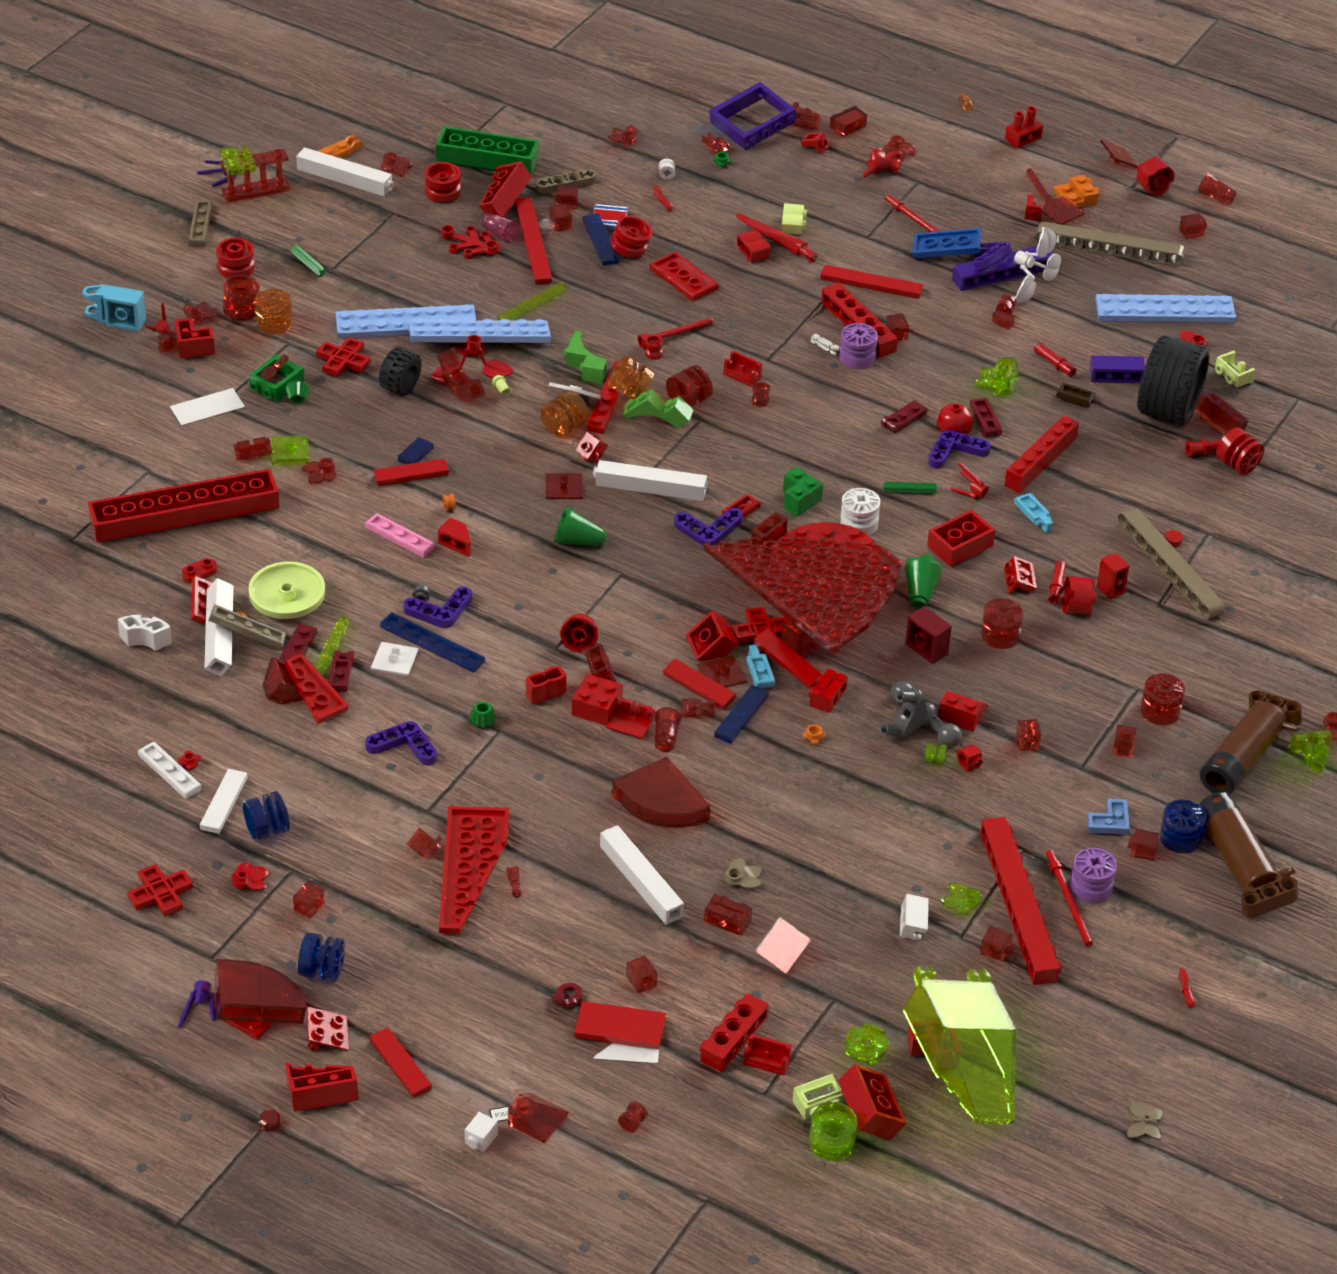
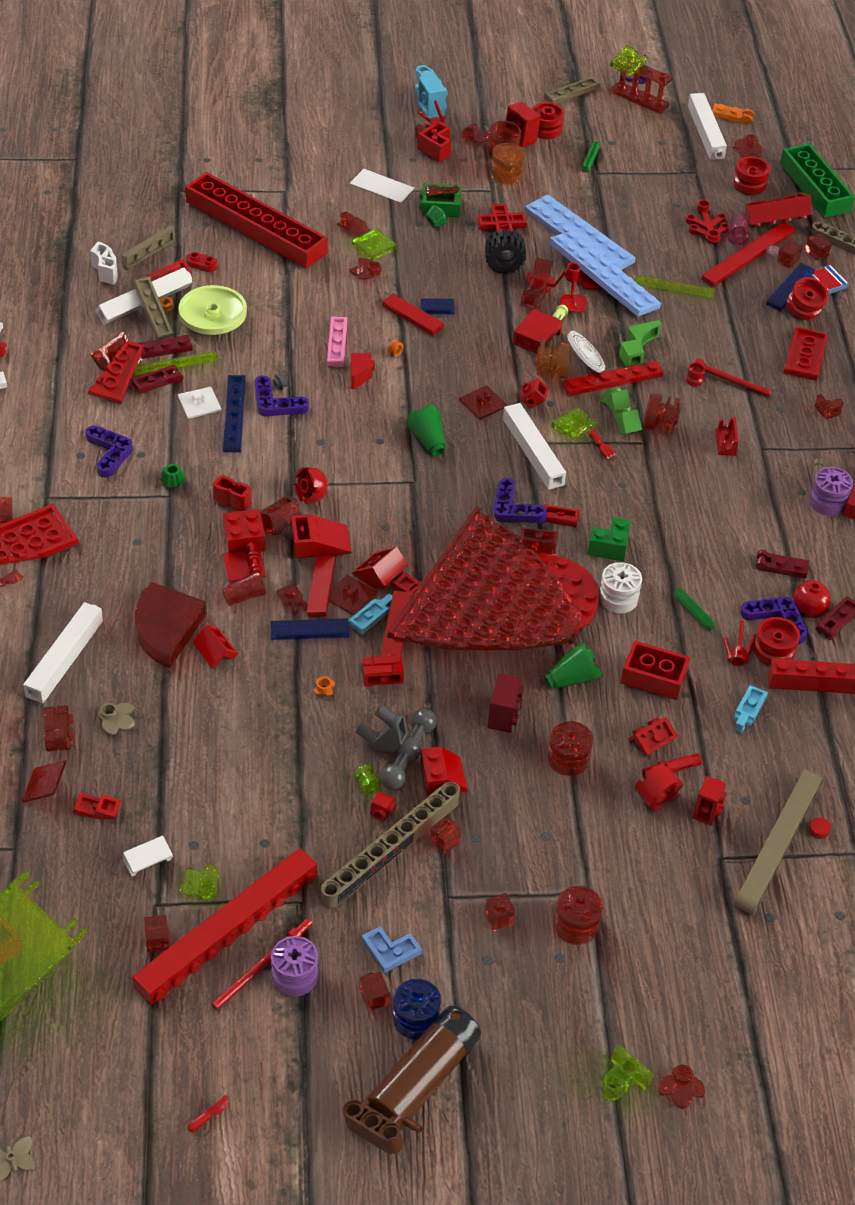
camera: 55 degrees right, 5 degrees up
(145, 590) = (148, 247): none -> dark tan tile
(226, 266) = (526, 120): none -> red brick
(514, 408) = (534, 329): none -> red panel
(631, 377) = (630, 371): clear orange wheel -> none
(638, 448) = (575, 423): none -> clear neon green plate
(643, 659) = (318, 536): none -> red slope
(688, 444) = (605, 449): none -> red piece
(713, 780) = (214, 645): none -> red panel
(759, 299) = (828, 408): none -> clear red panel
(760, 394) = (707, 461): clear red wheel -> none
(833, 927) = (99, 808): none -> red slope
(987, 459) = (776, 640): none -> red wheel
(1012, 771) = (385, 850): none -> dark tan beam
(1249, 740) = (580, 1011): reddish brown piece -> none

